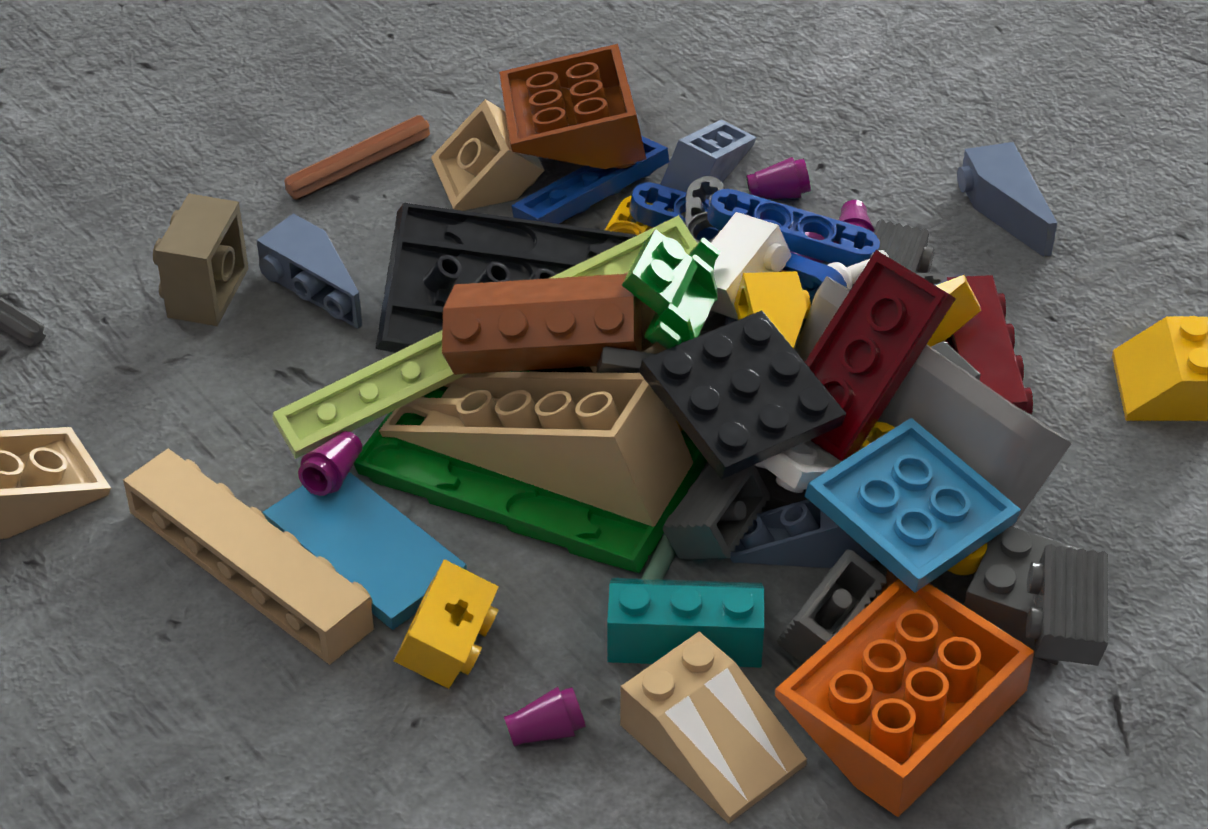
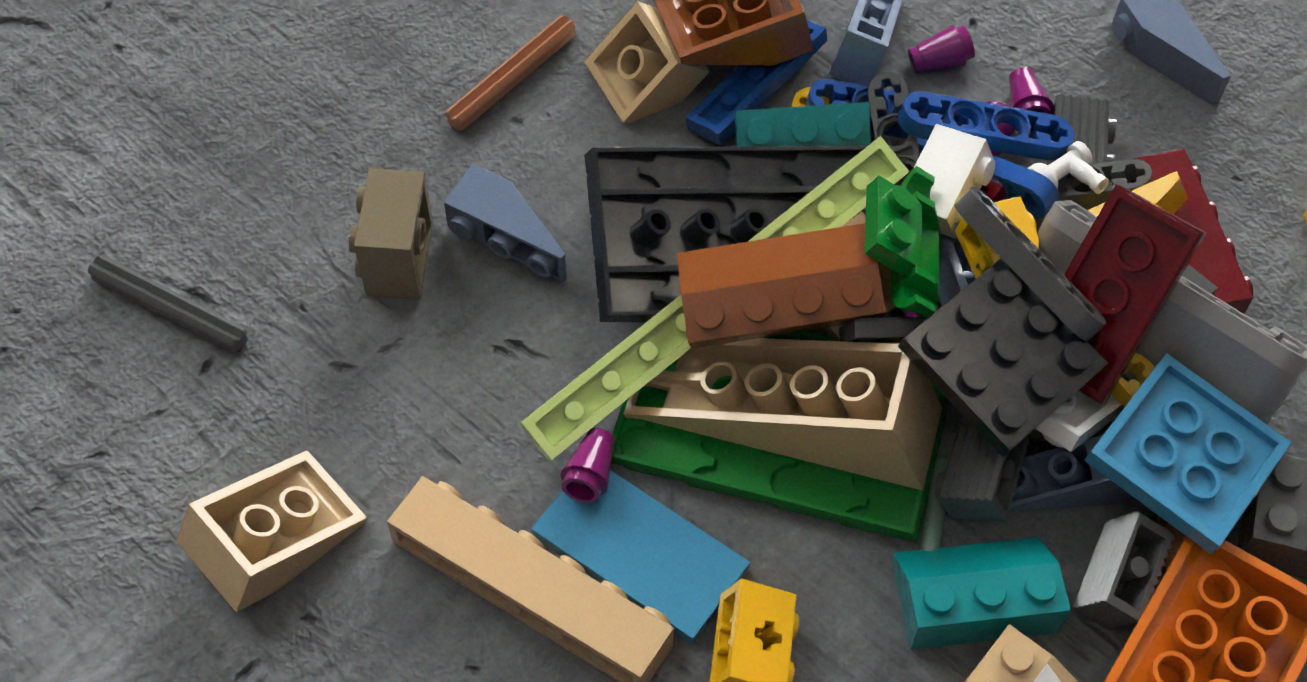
camera: 10 degrees left, 15 degrees up
(615, 213) = (804, 126): none -> teal plate
(786, 319) = (1030, 264): none -> dark grey beam

